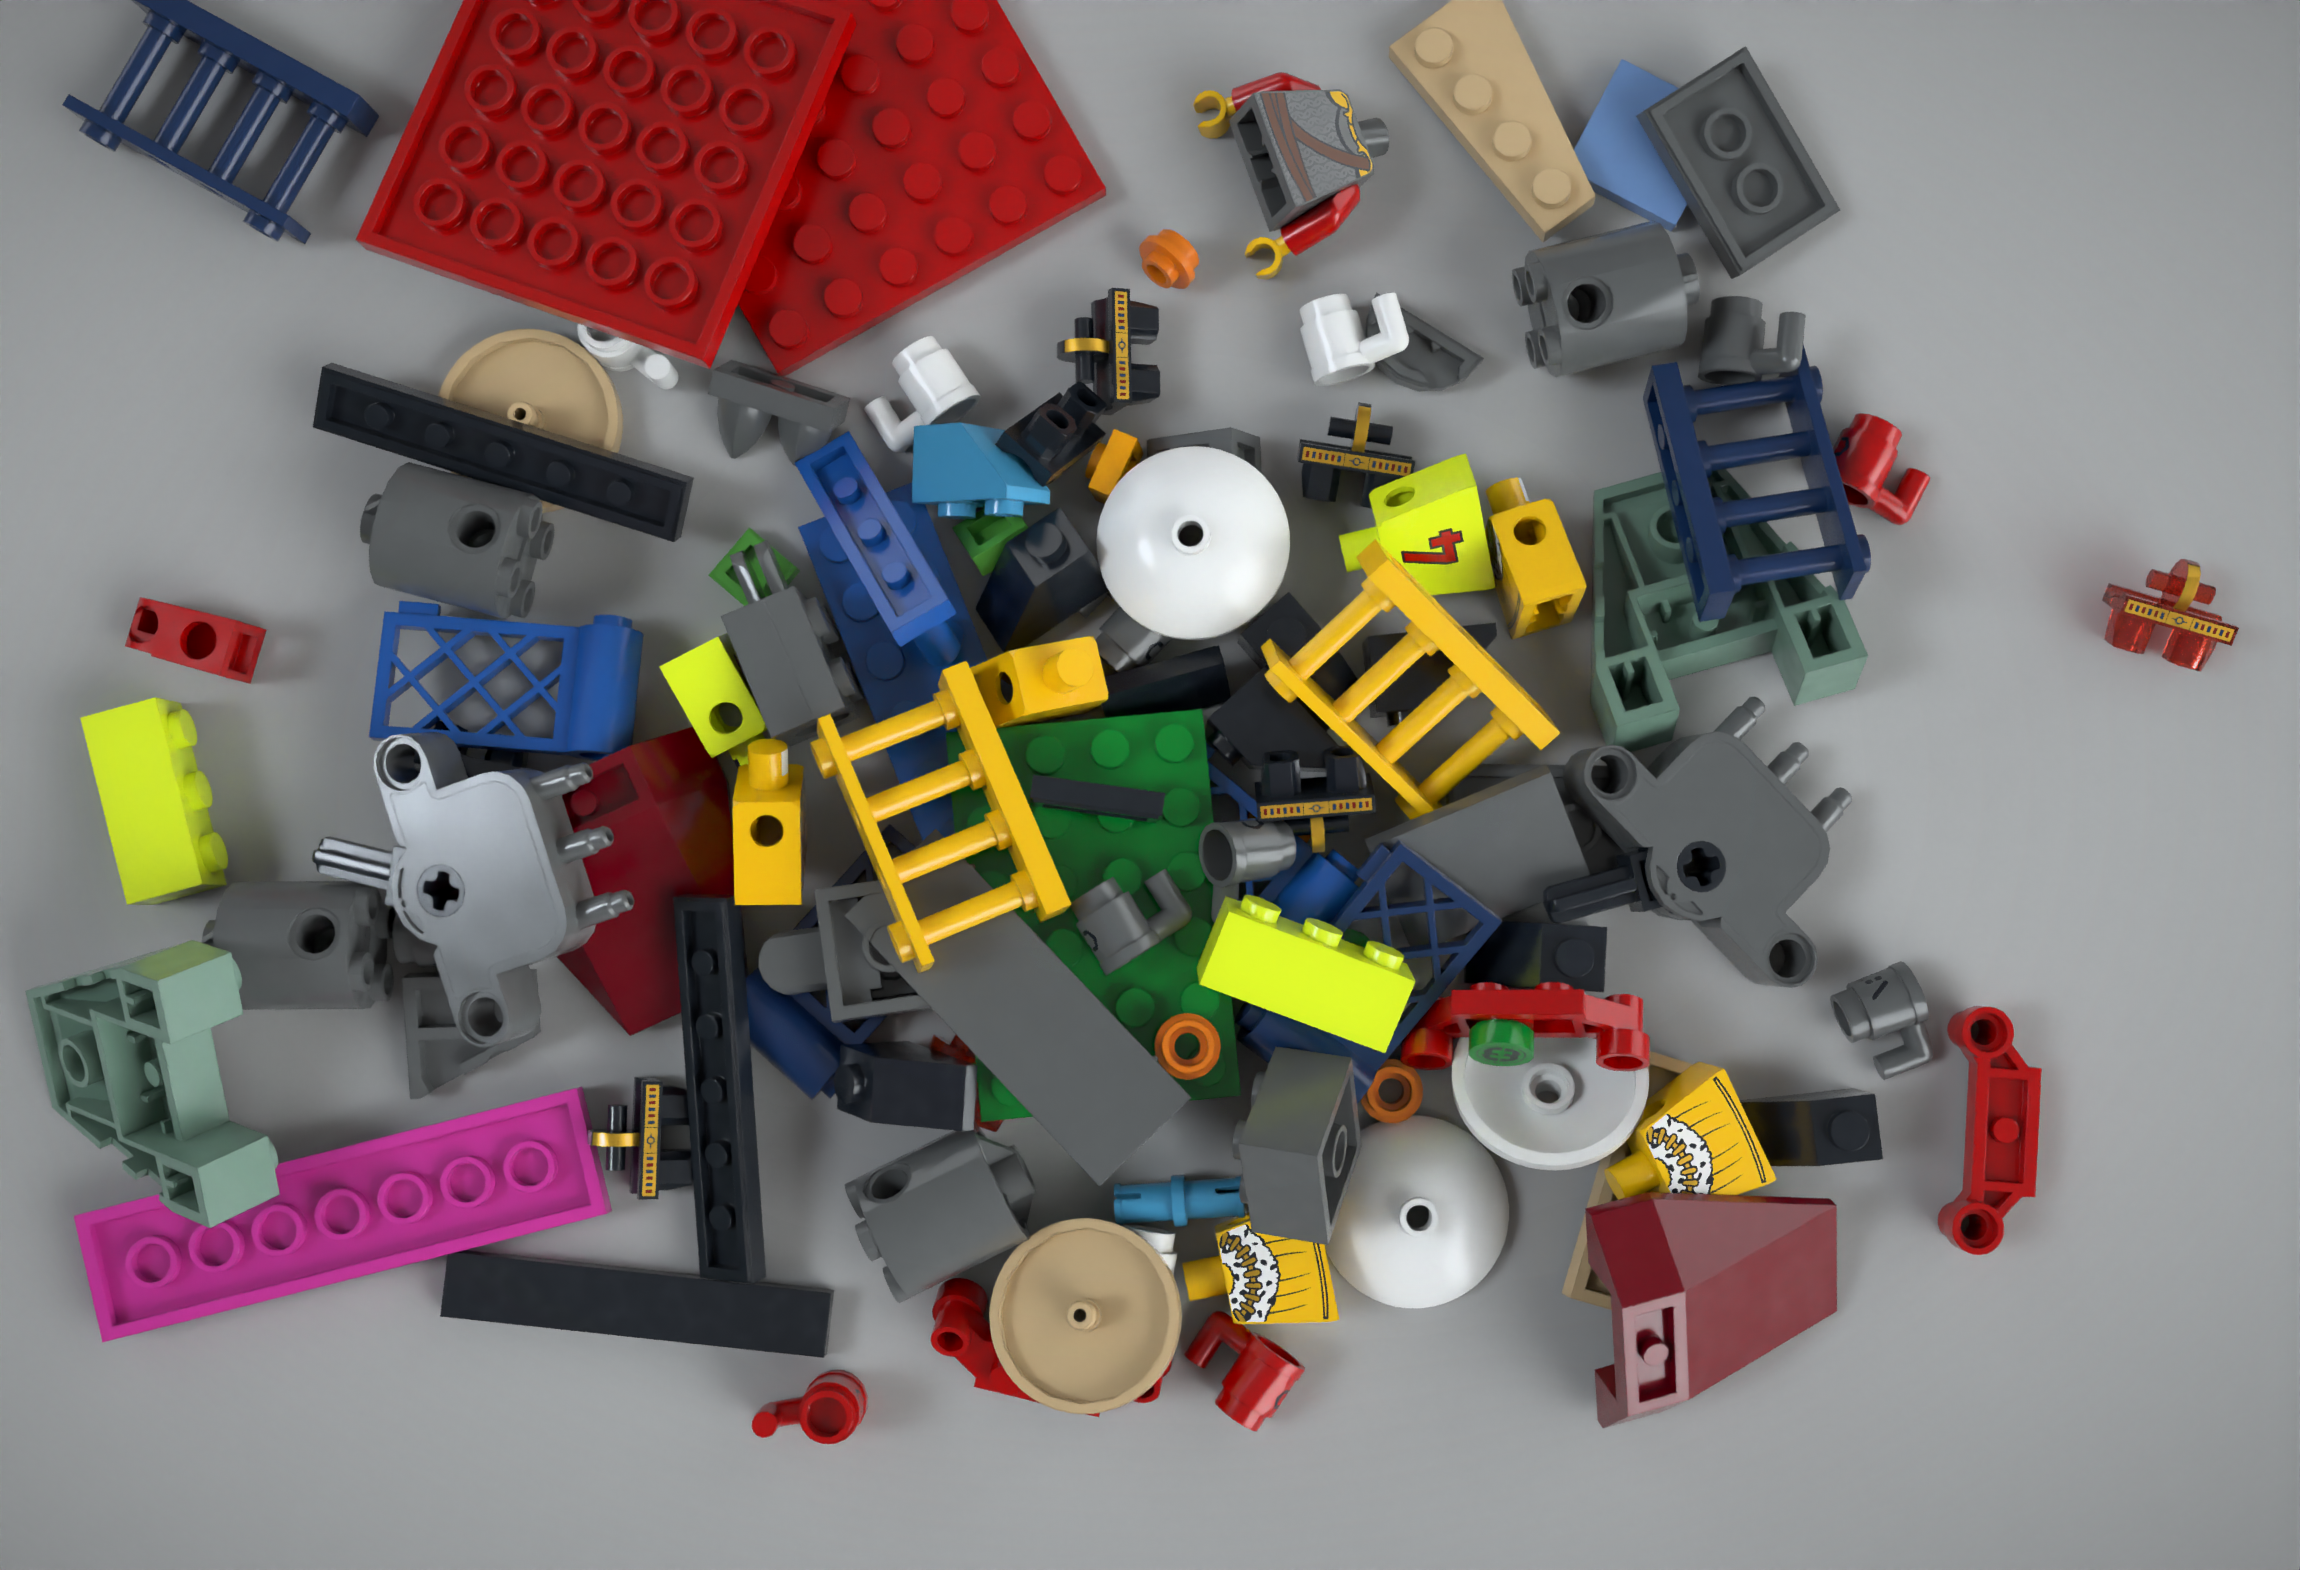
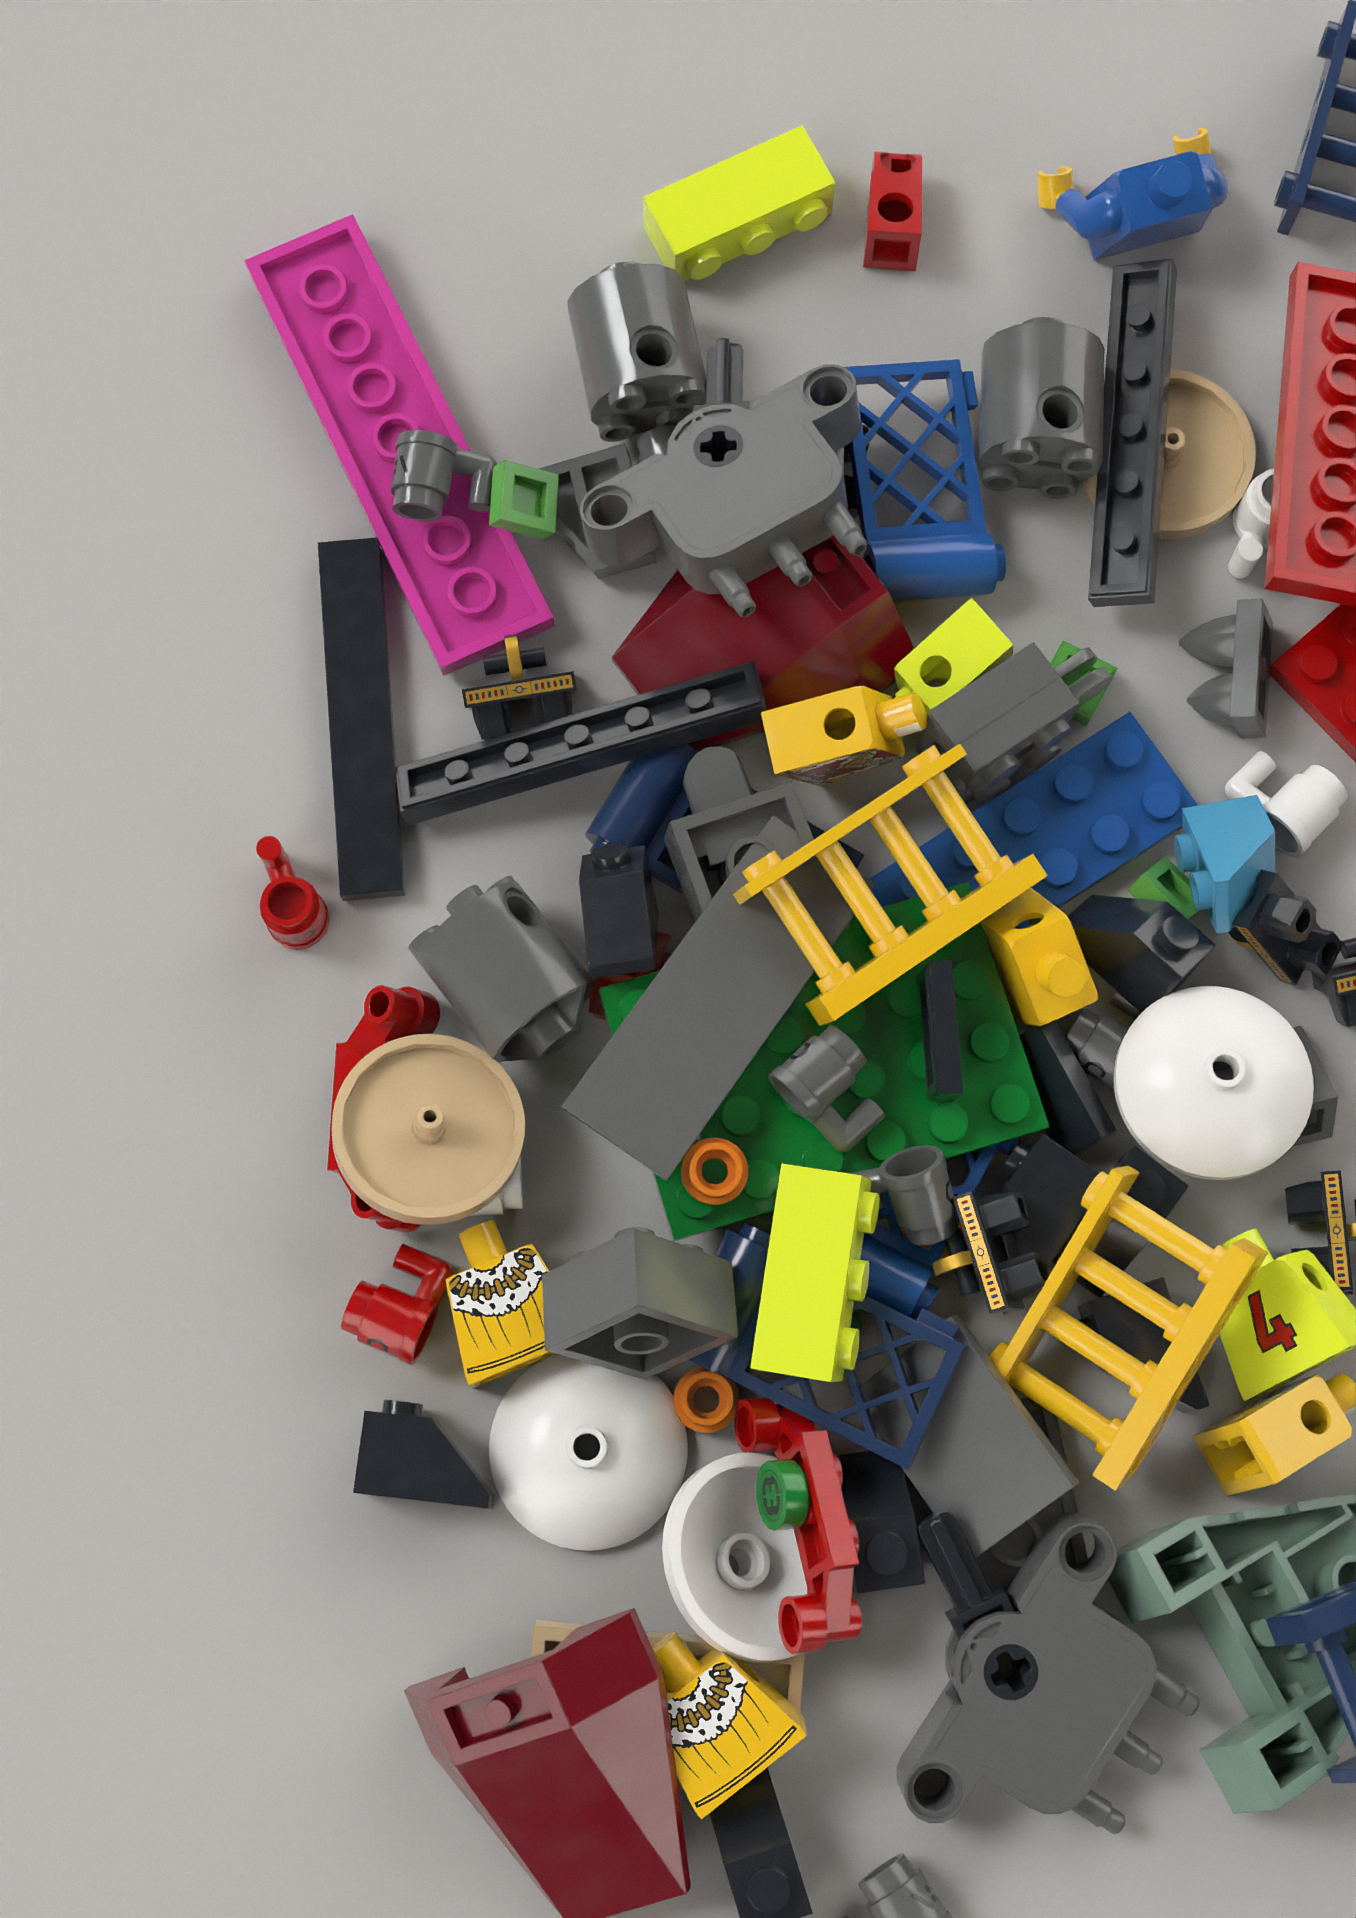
camera: 80 degrees right, 10 degrees down
(140, 1070) = (492, 240): sand green wedge -> none
(249, 378) = (1142, 201): none -> blue torso
(394, 1194) = (425, 472): none -> dark grey piece
(444, 1096) = (523, 499): none -> bright green plate
(881, 549) = (1129, 786): blue piece -> none
(1111, 463) = (1273, 989): light orange plate -> none
(1178, 1200) = (553, 1201): dark azure pin -> none
(1397, 1379) = (415, 1460): none -> black slope

